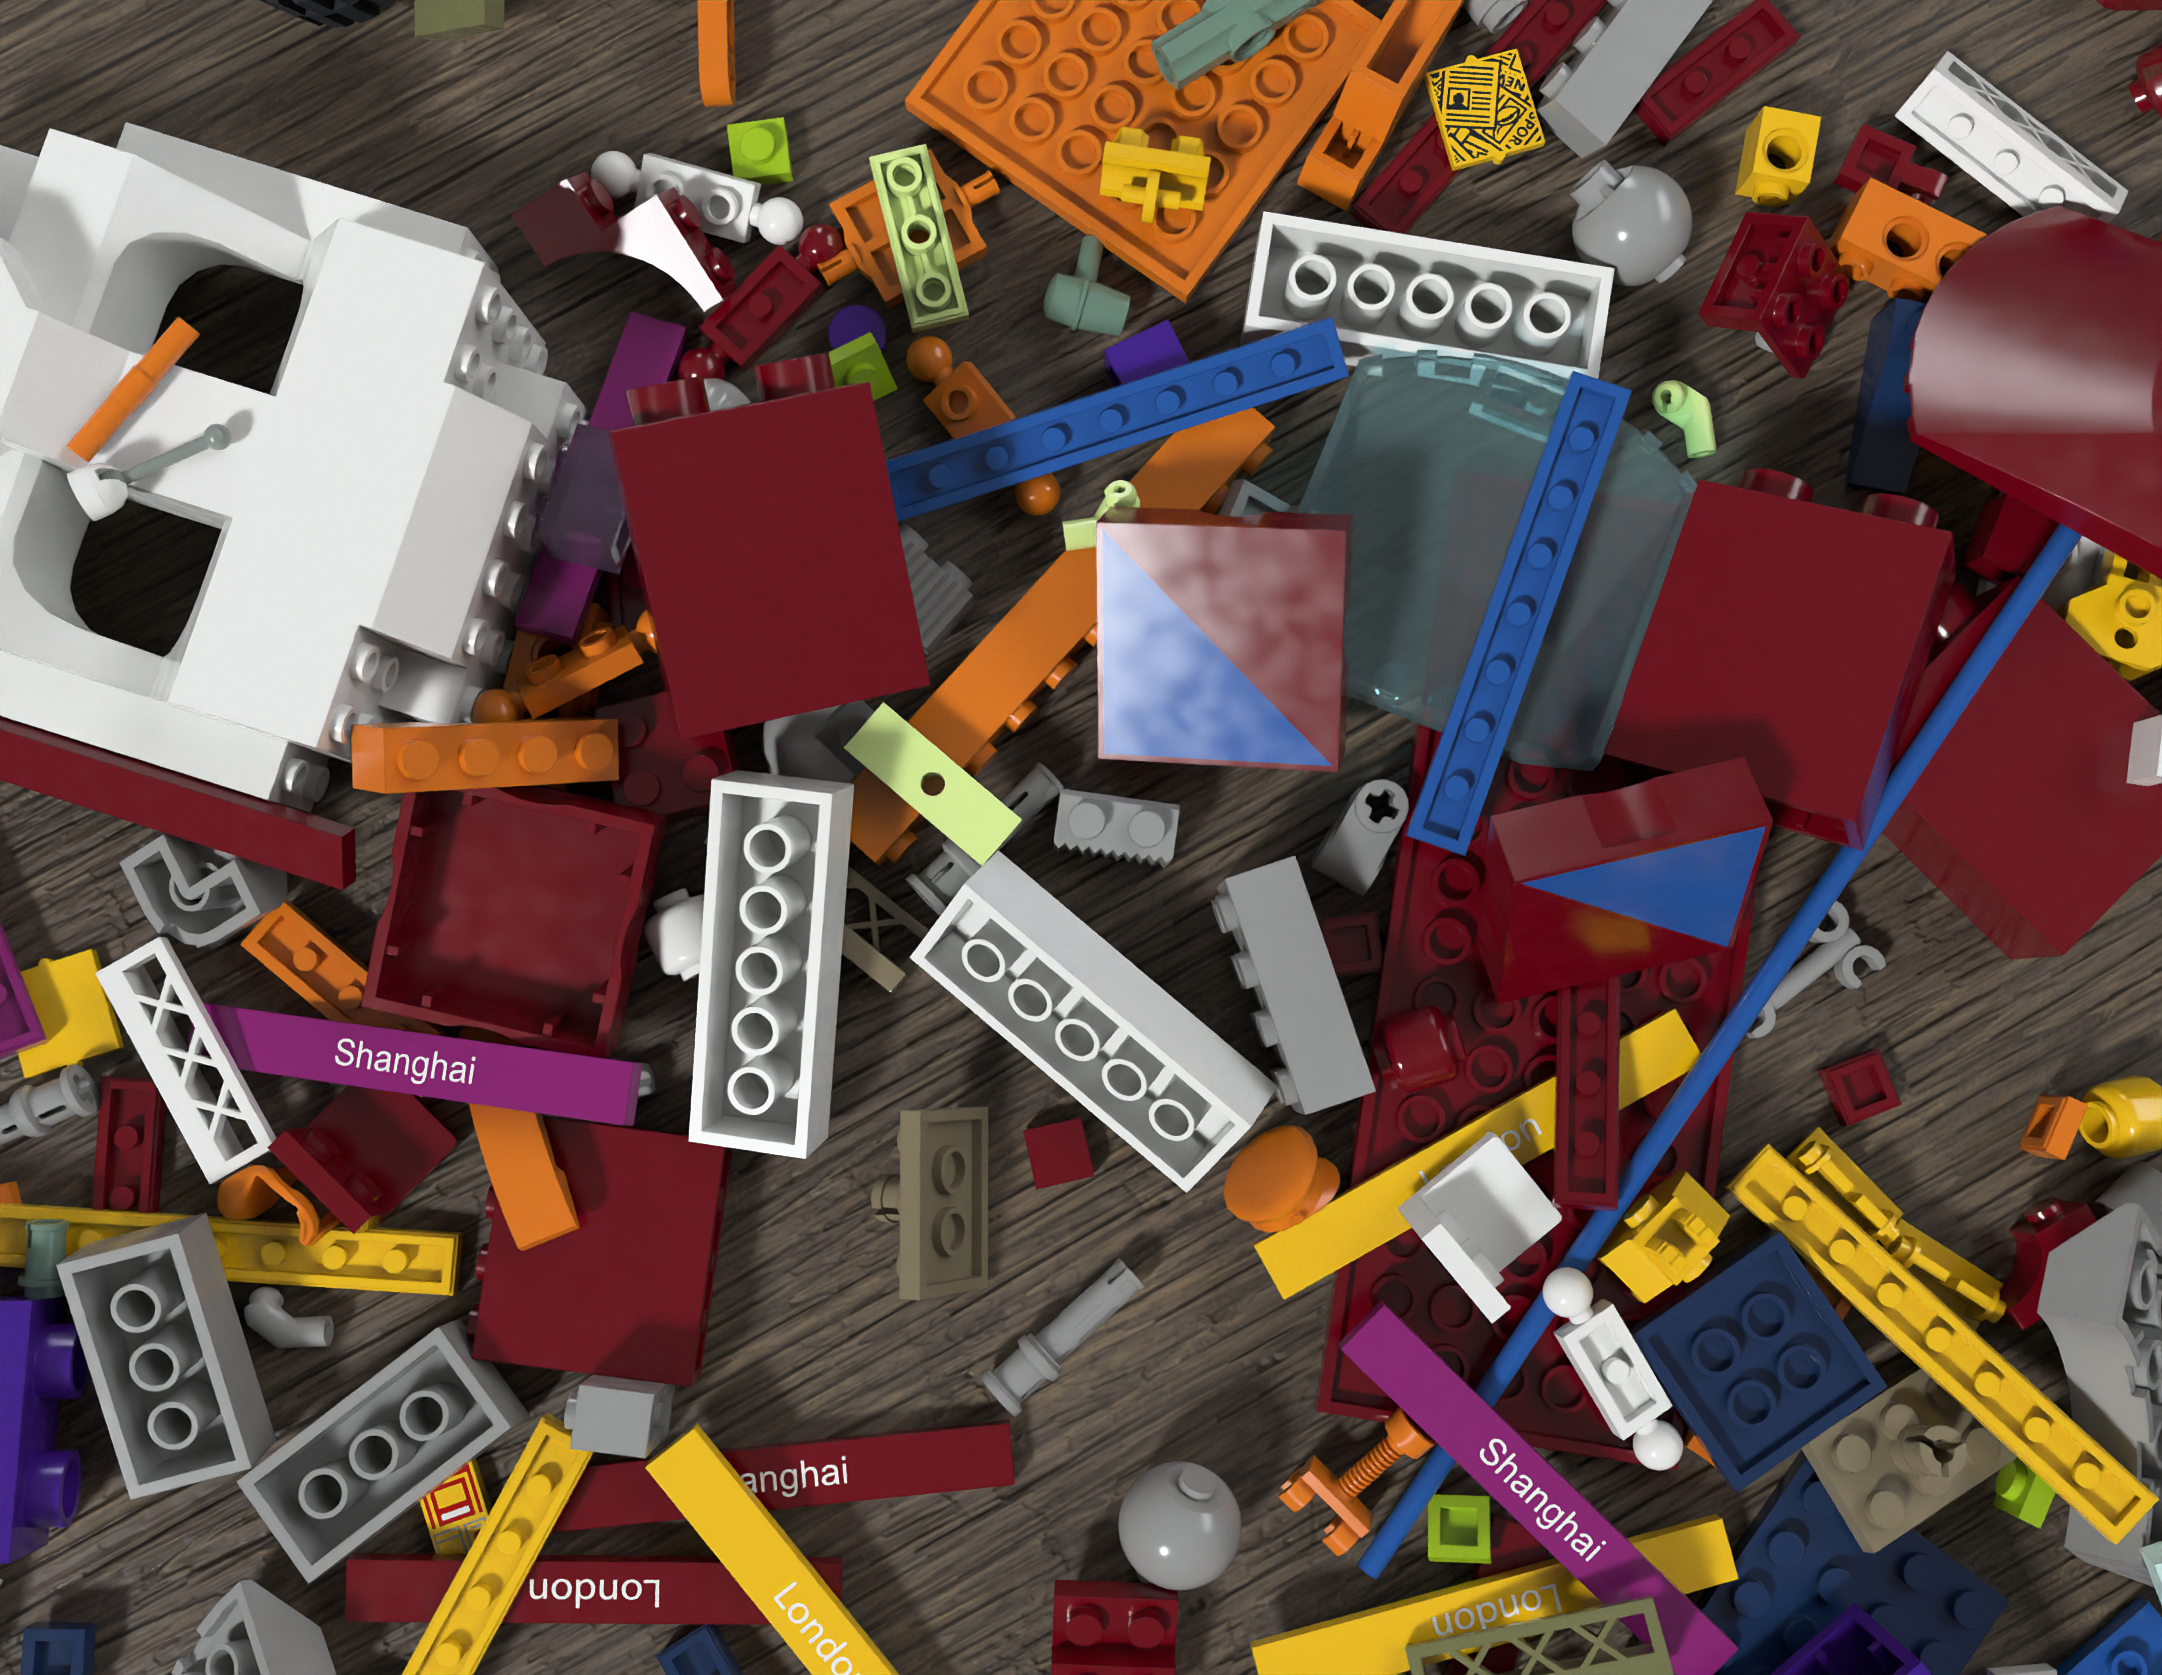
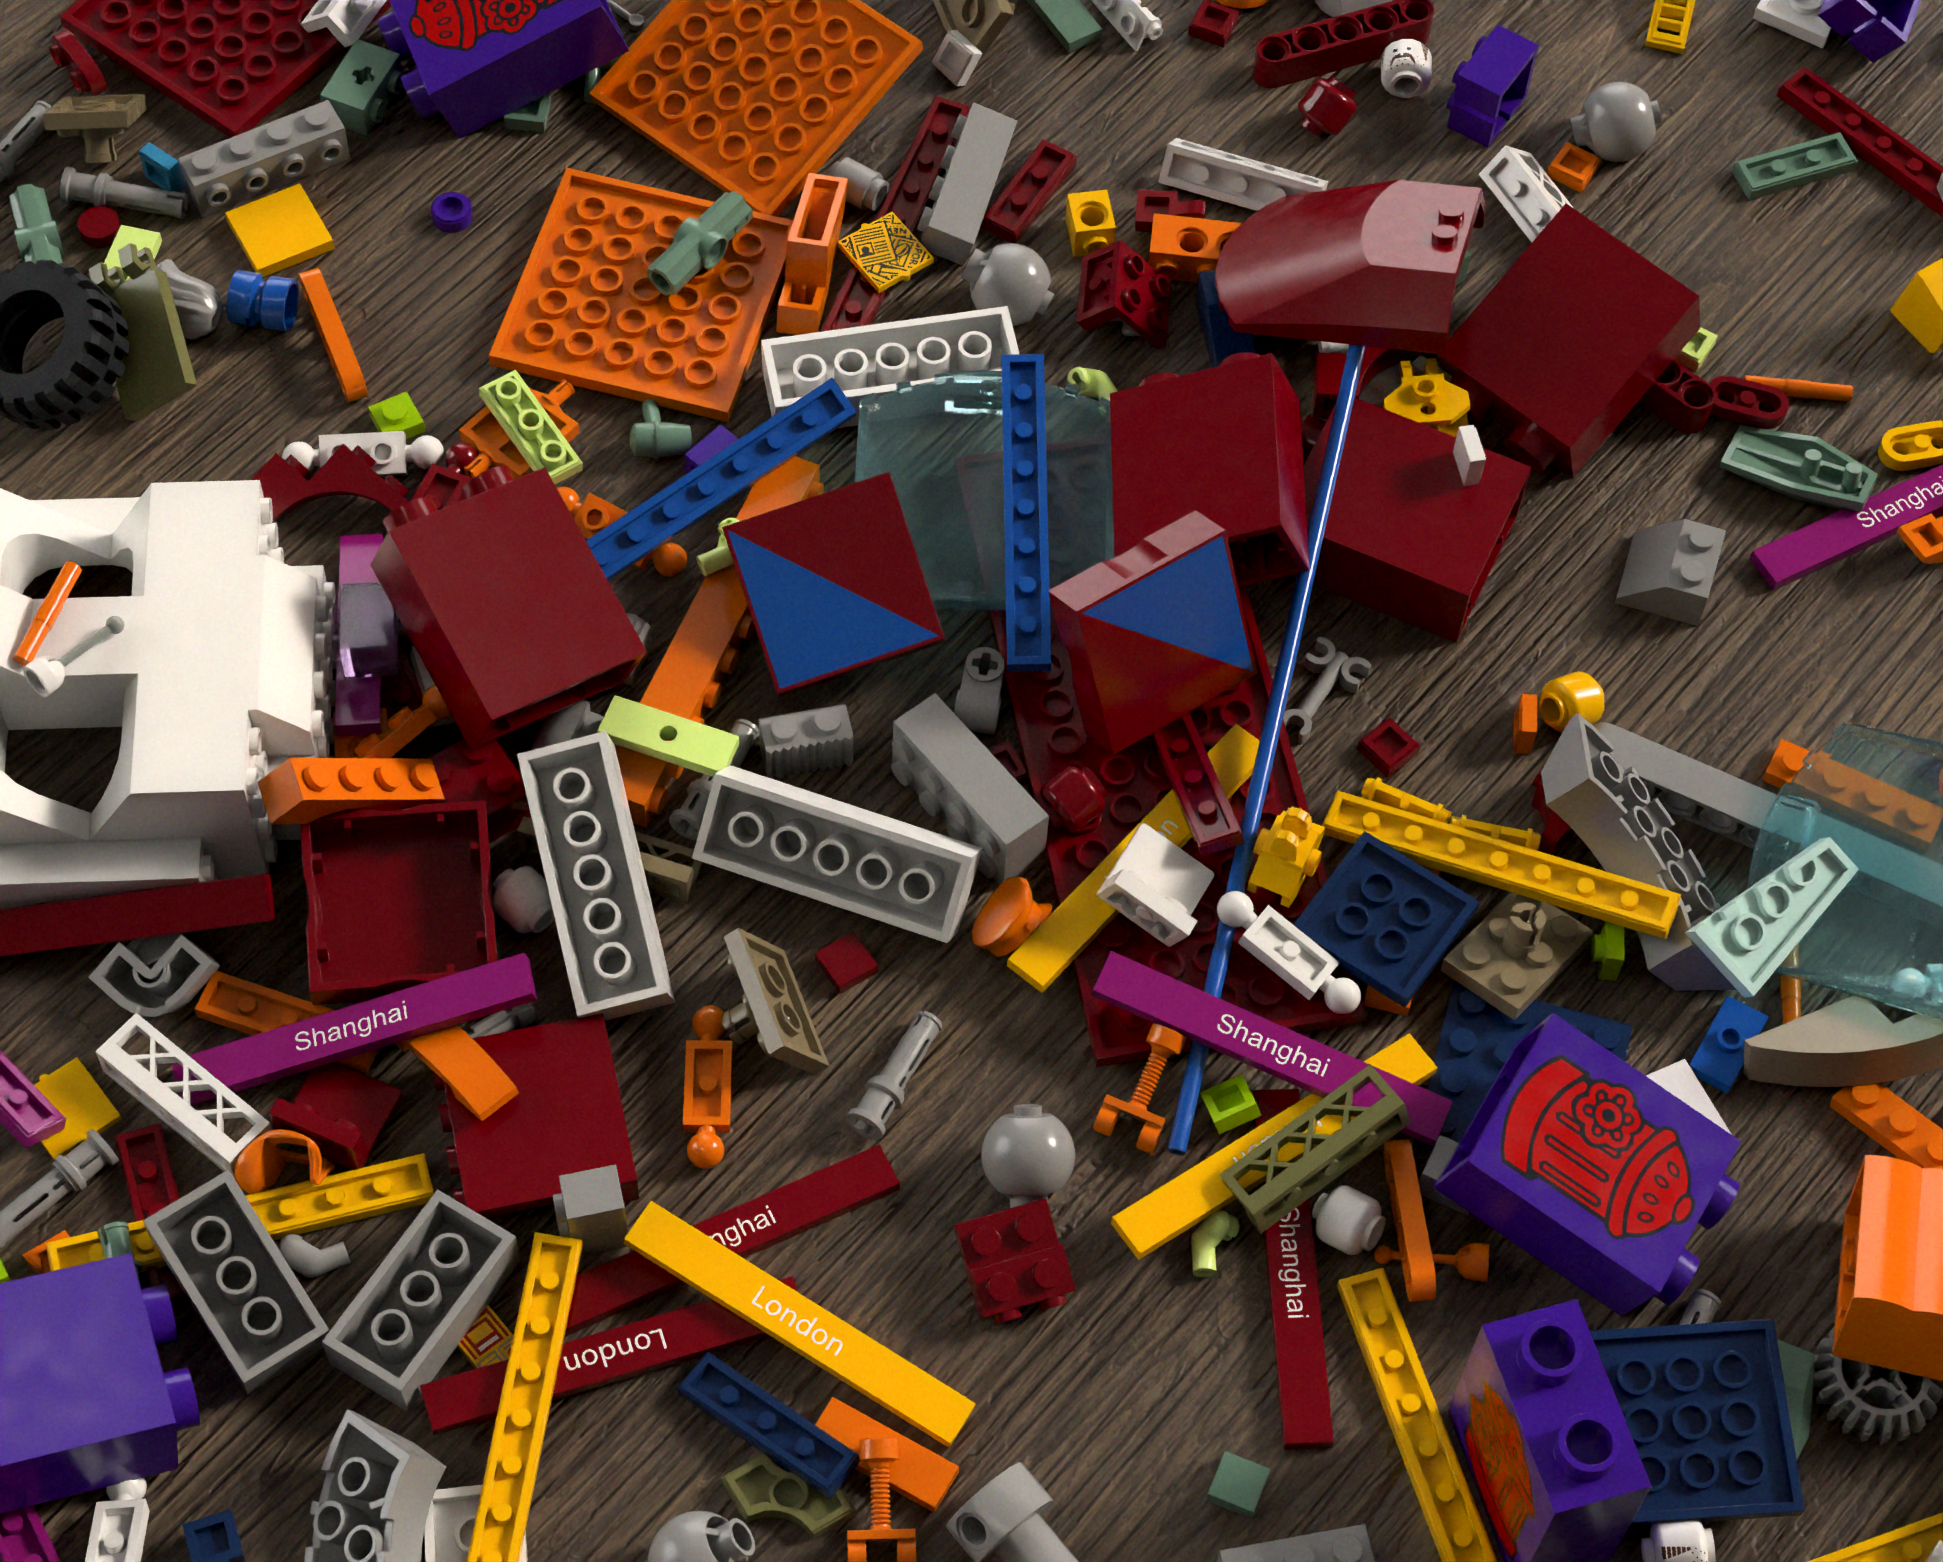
camera: 20 degrees left, 25 degrees down
(827, 1270) = (707, 1088): none -> orange plate
(1155, 175) = (678, 343): yellow hips -> none

